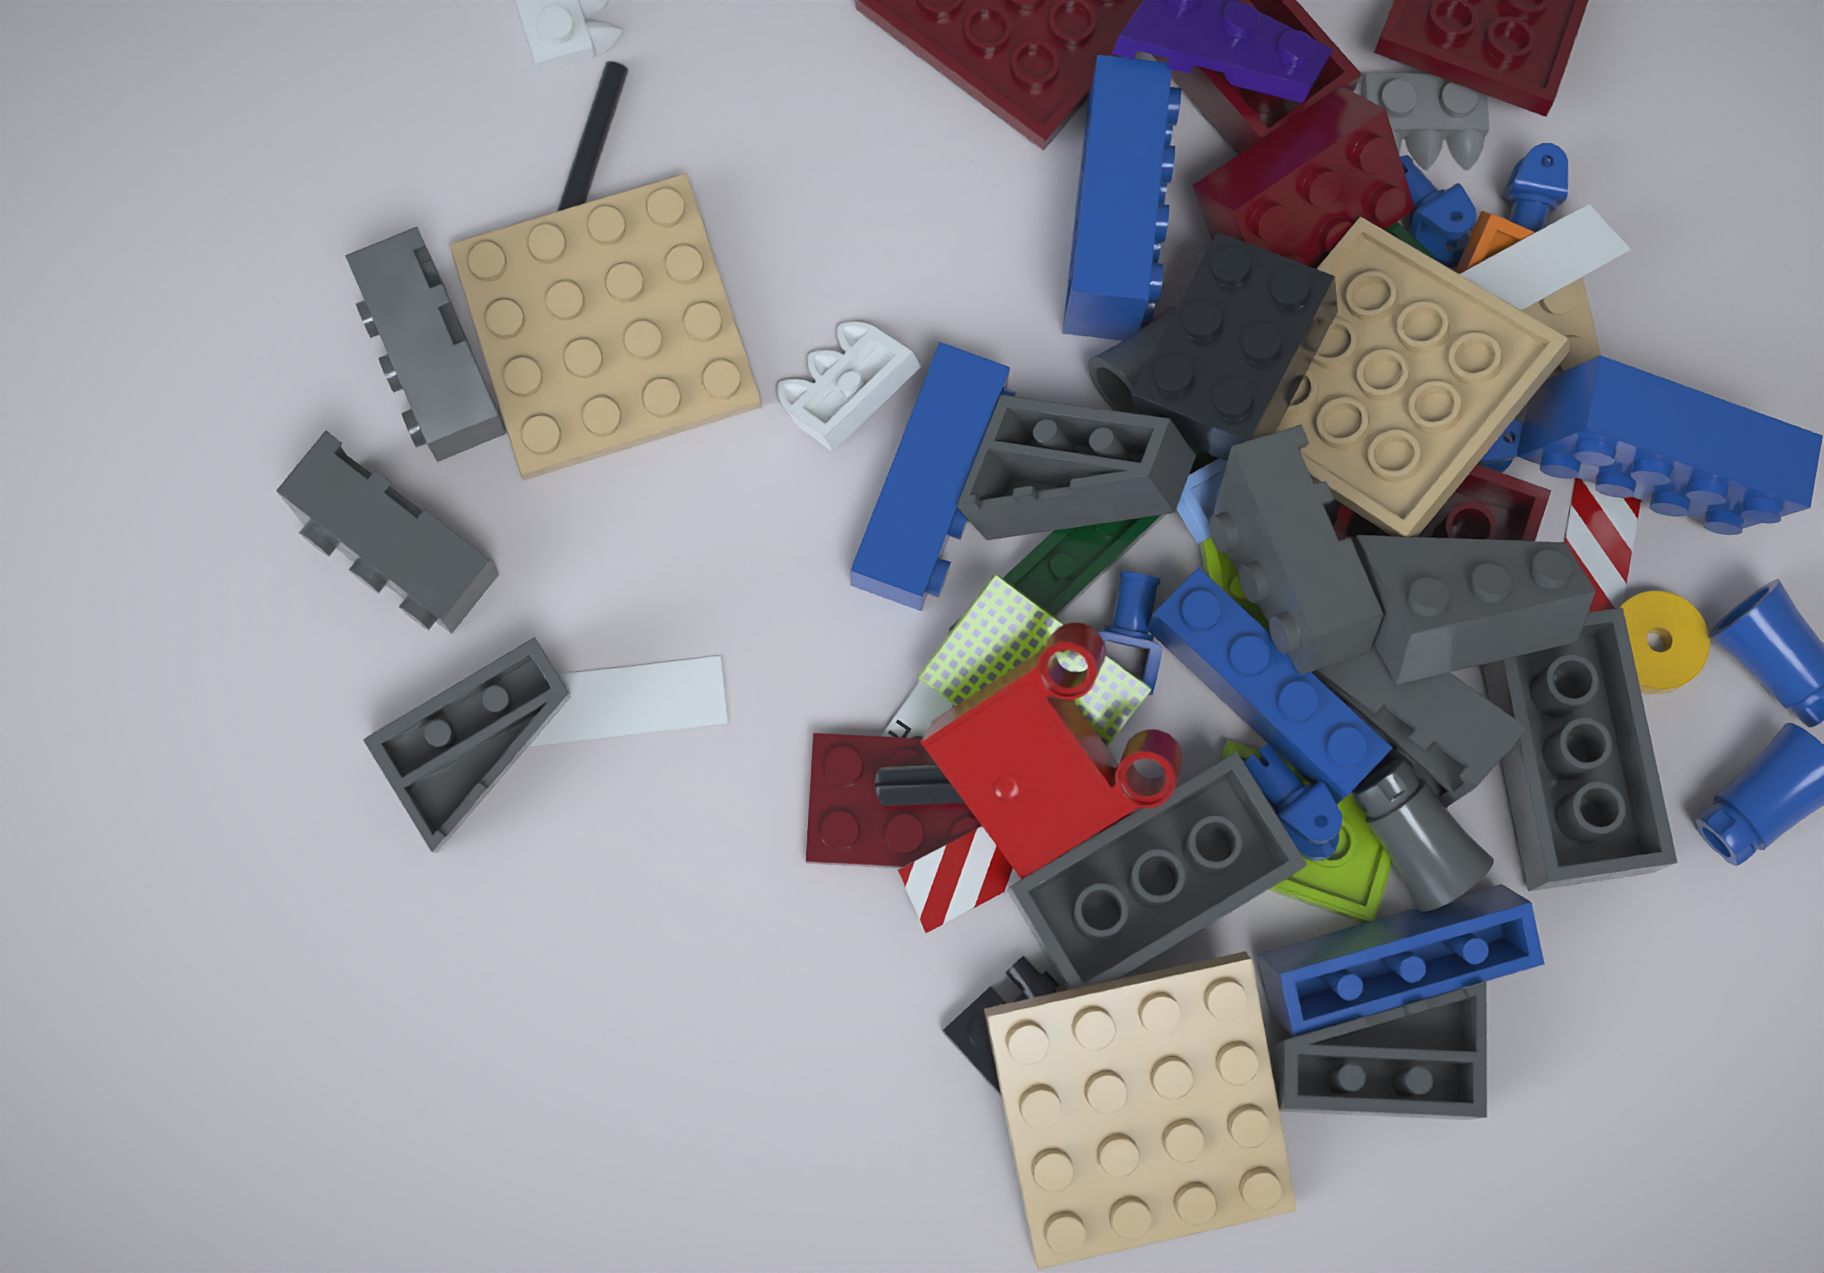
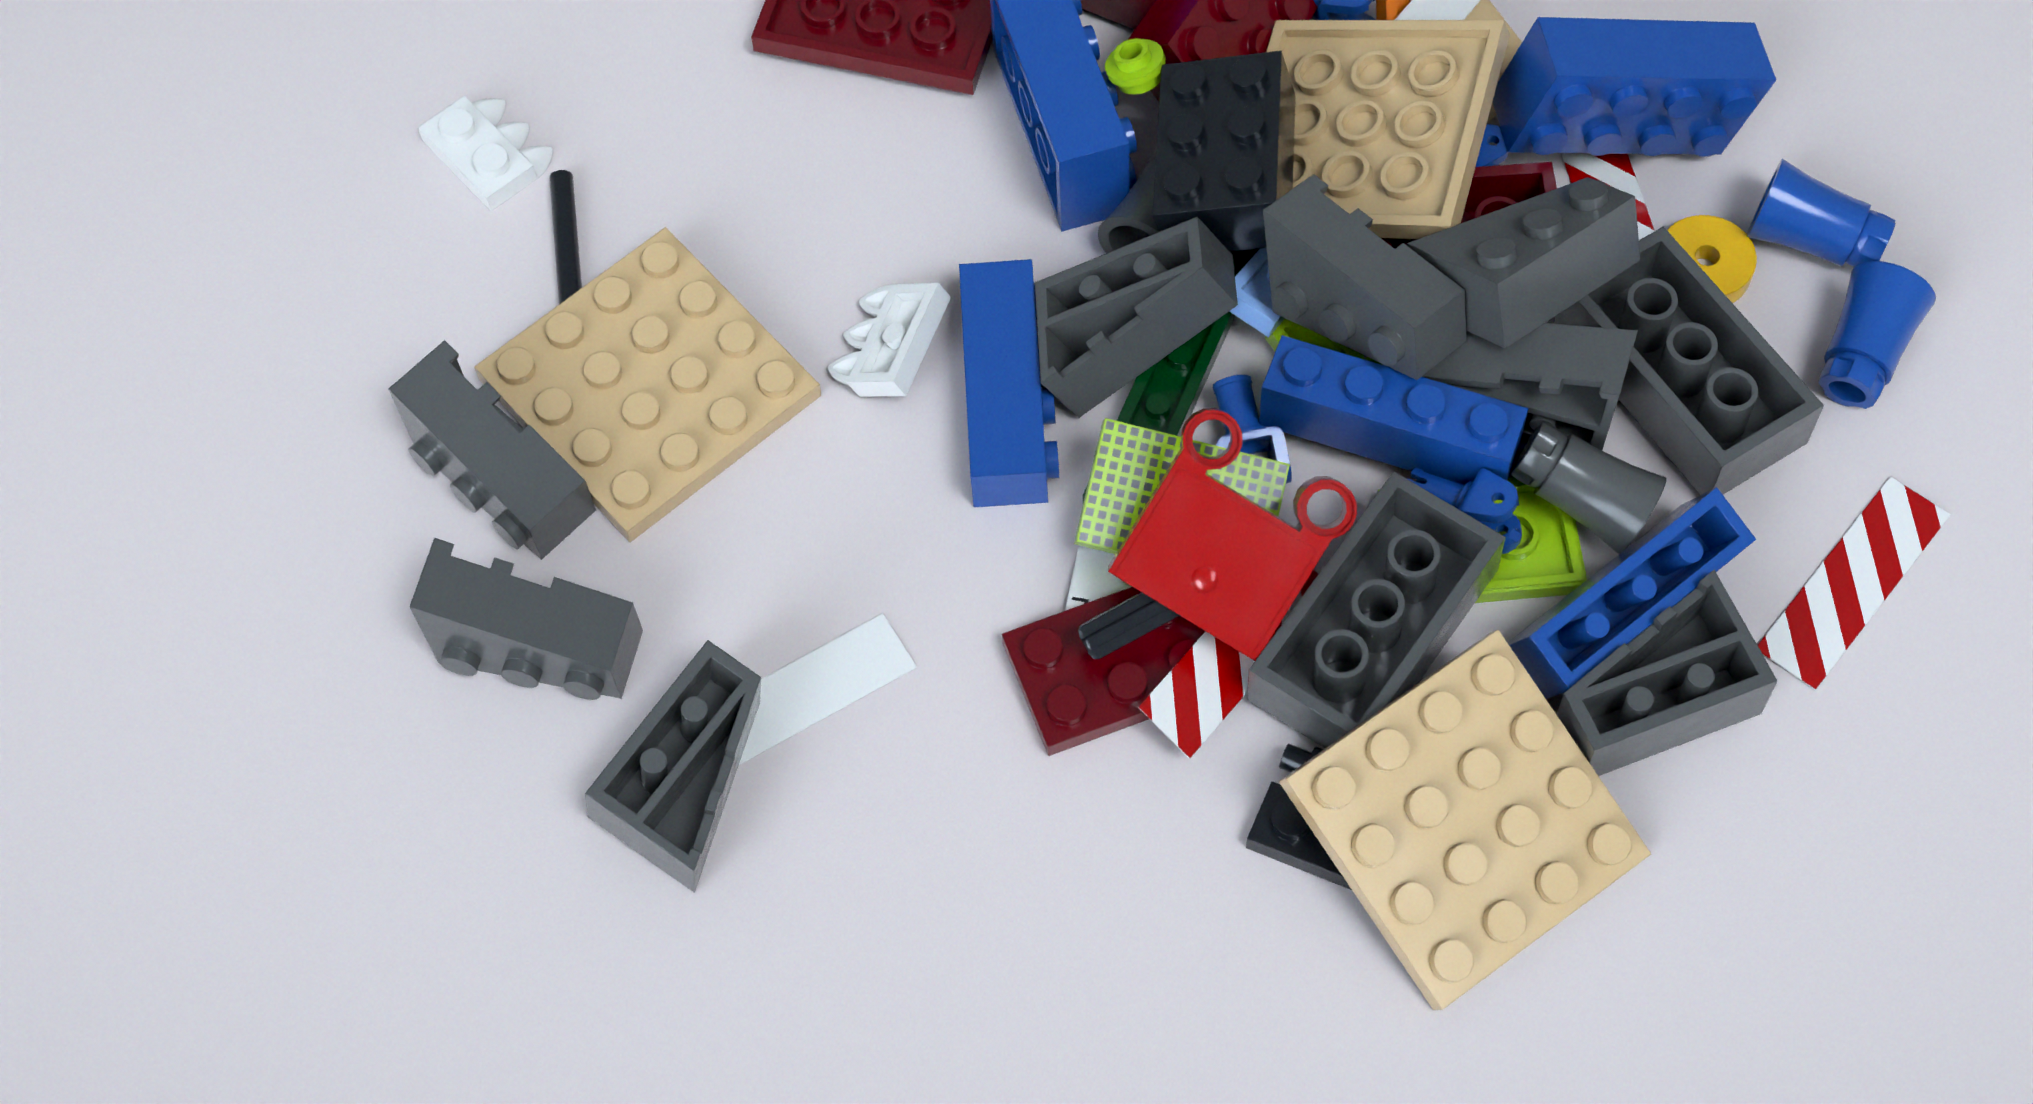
camera: 15 degrees left, 15 degrees down
(1193, 230) = (1135, 65): none -> lime plate
(1623, 1027) = (1852, 582): none -> sticker

